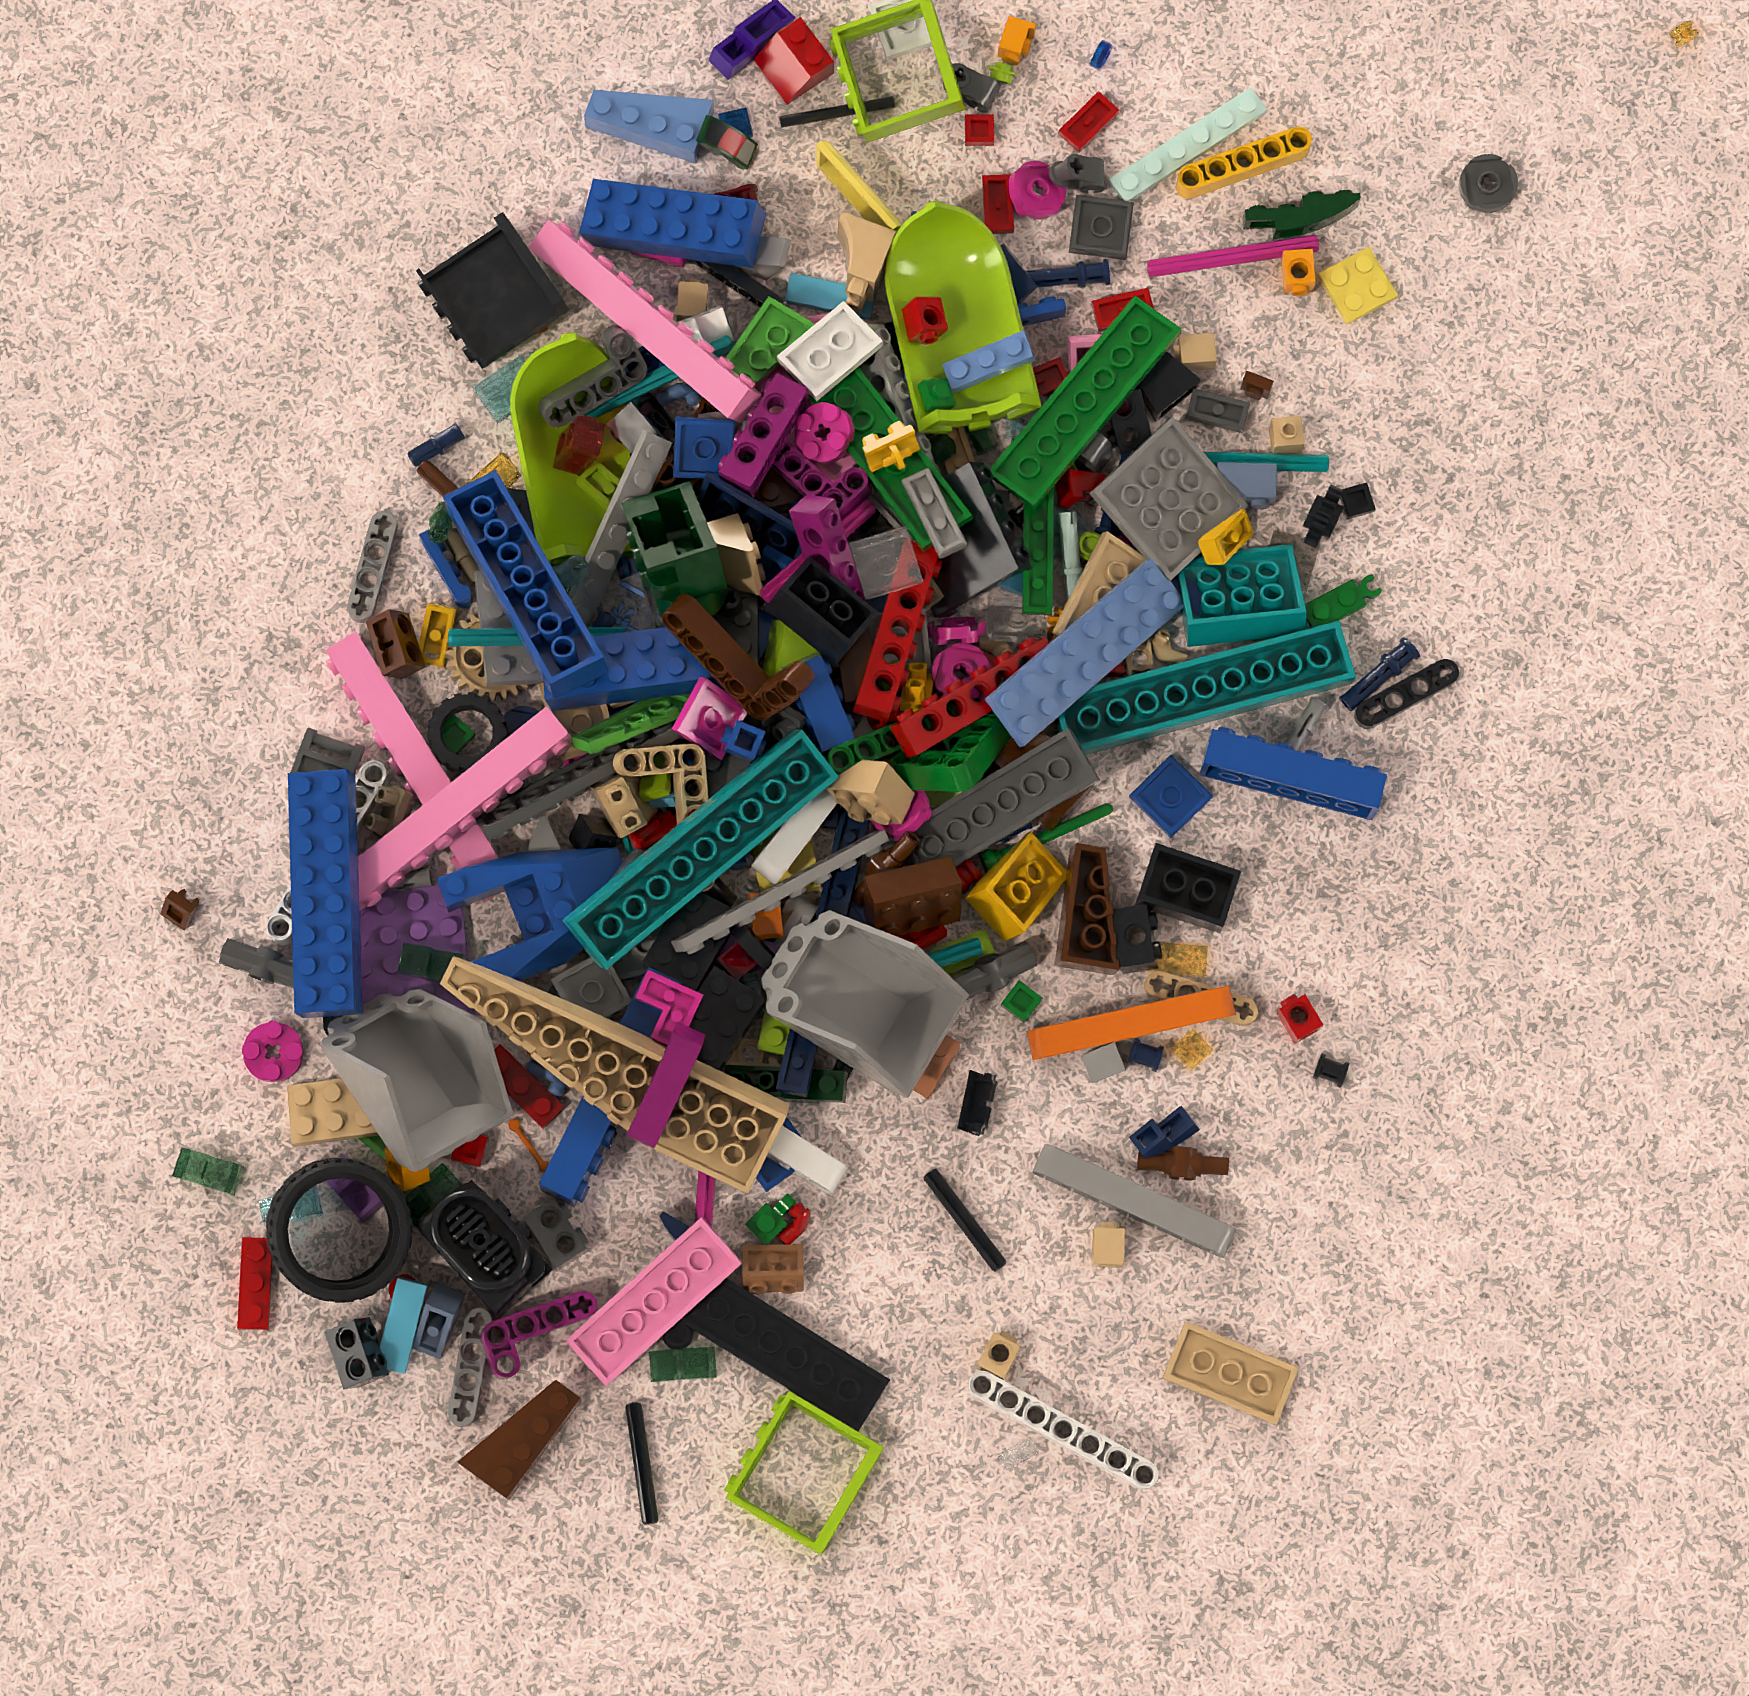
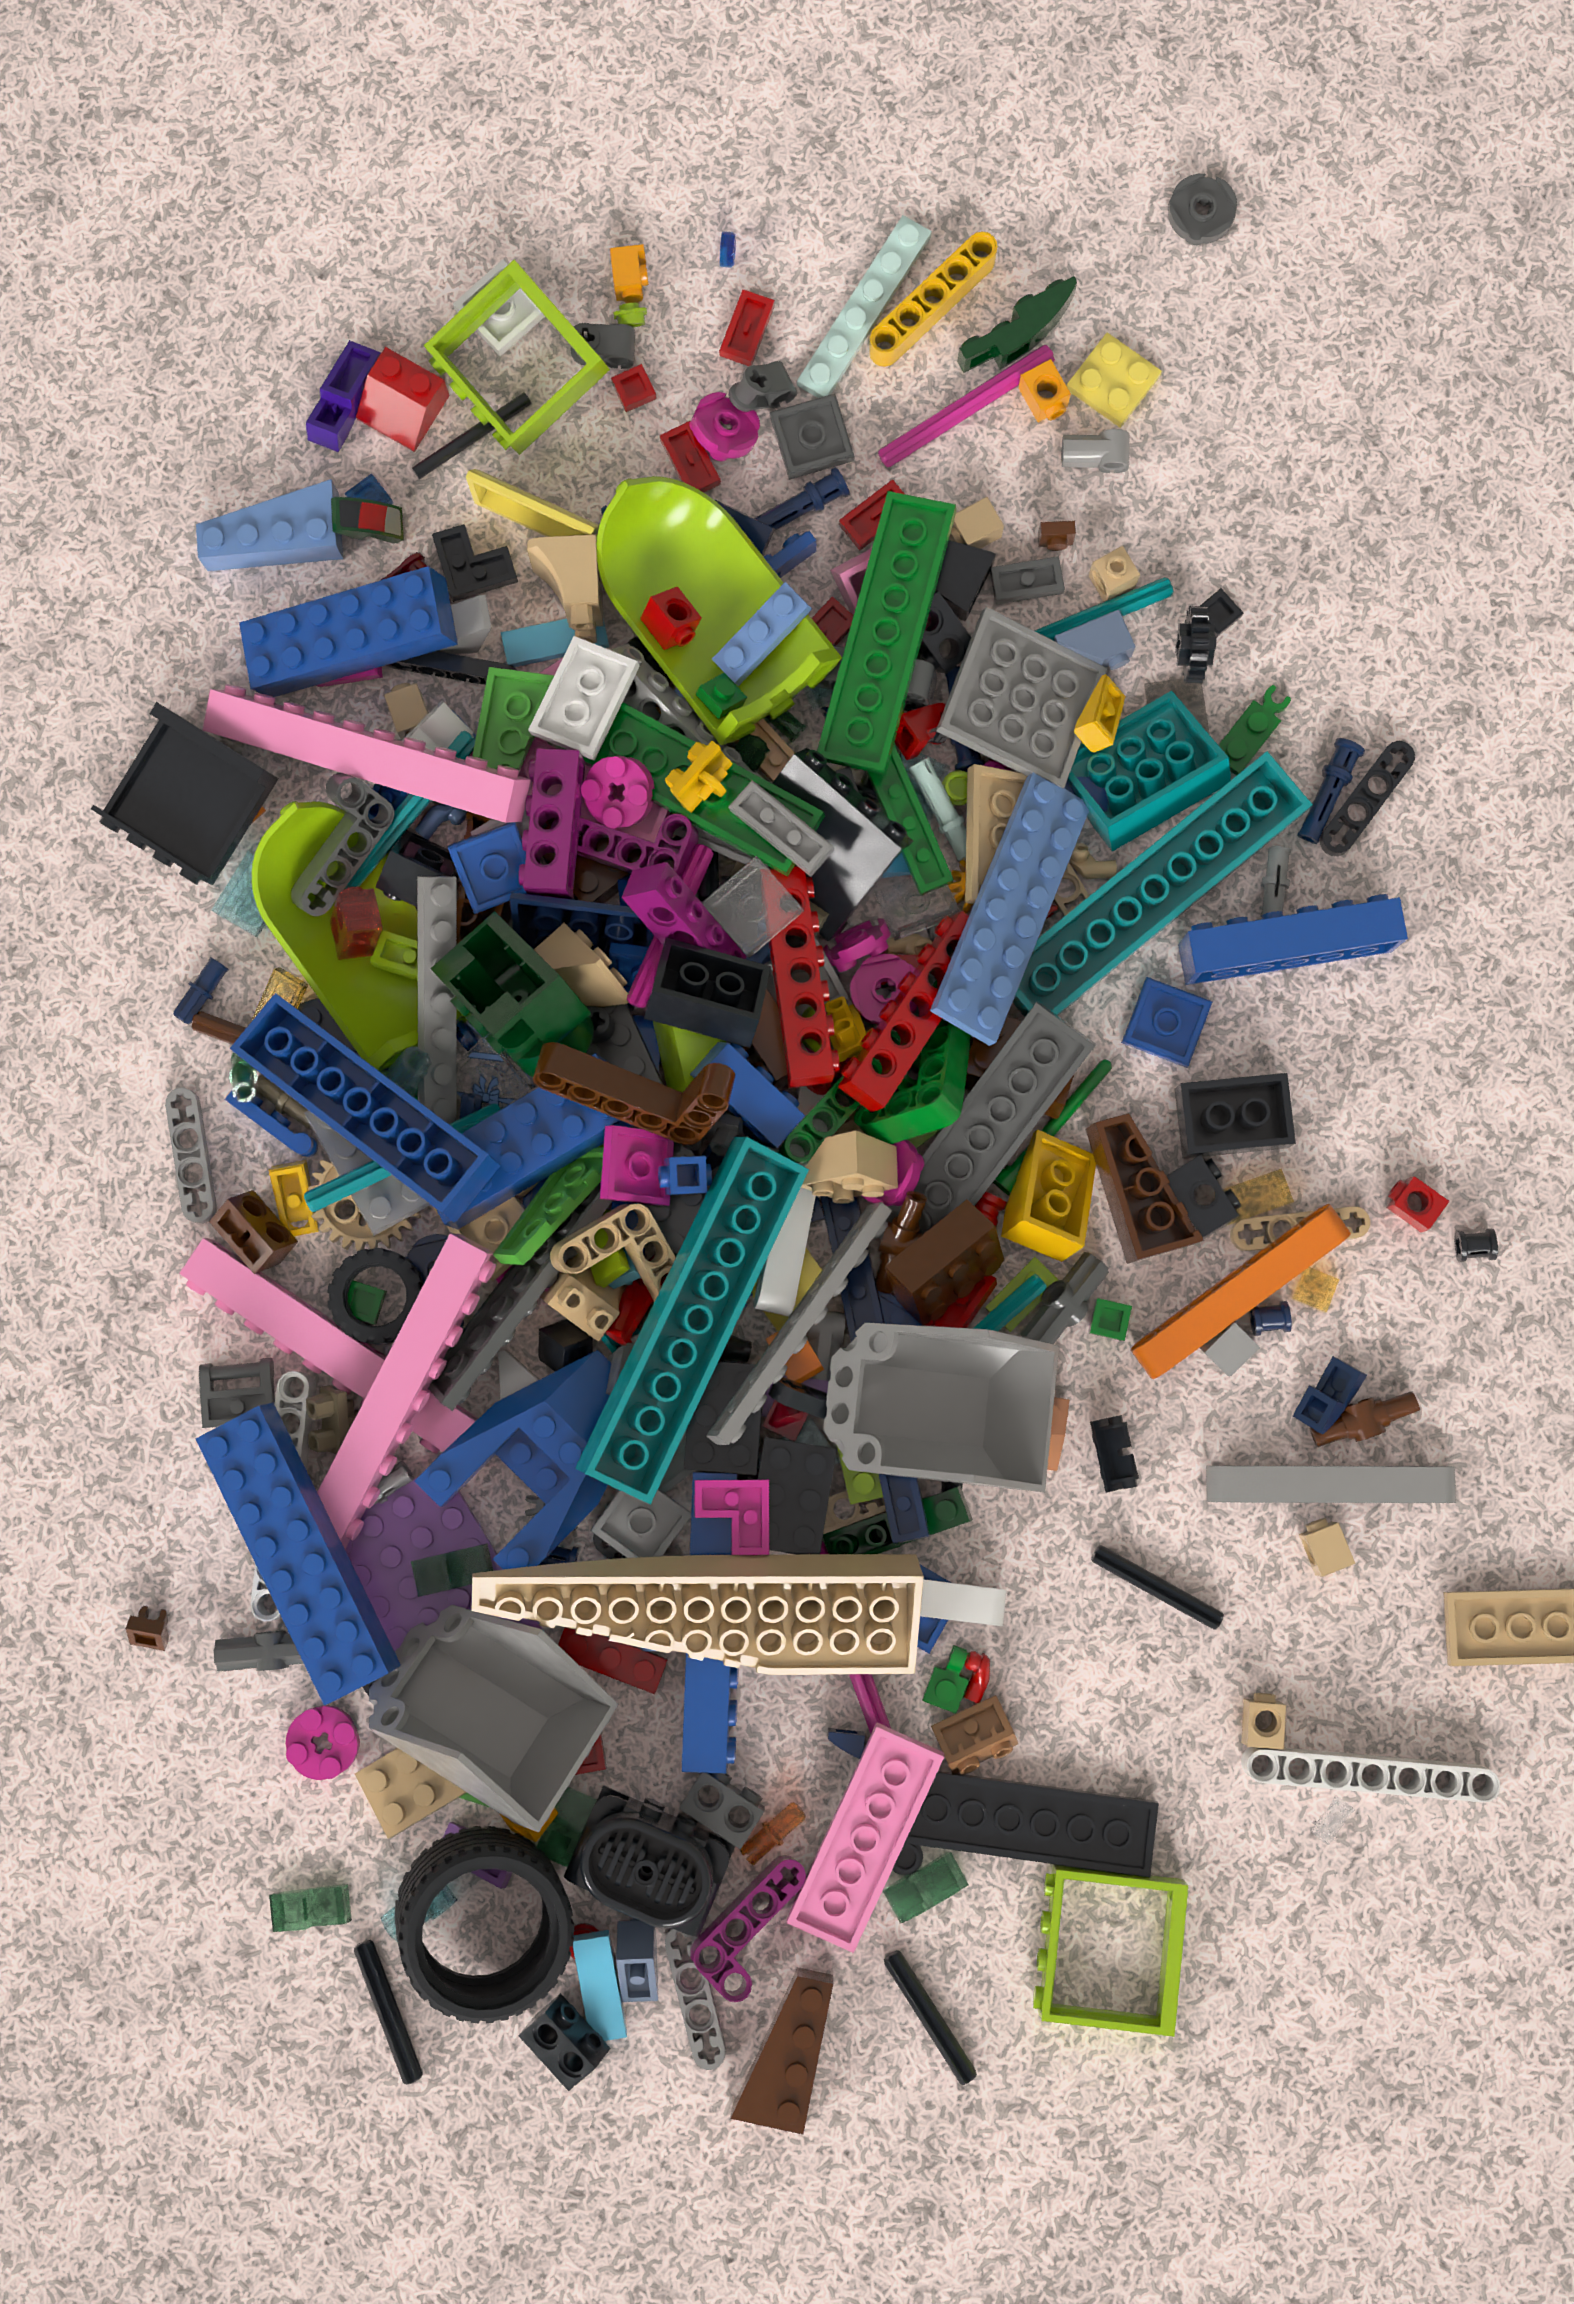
camera: 15 degrees left, 5 degrees up
(231, 1274) = (388, 2012): none -> black axle
(254, 1285) = (421, 2022): red plate -> none
(514, 1125) = (674, 1734): orange hinge -> none
(585, 1271) = (773, 1832): none -> clear orange axle
(666, 1085) = (776, 1603): magenta beam -> none
(788, 218) = (471, 573): none -> black plate
(1324, 337) = (1101, 451): none -> light grey piece

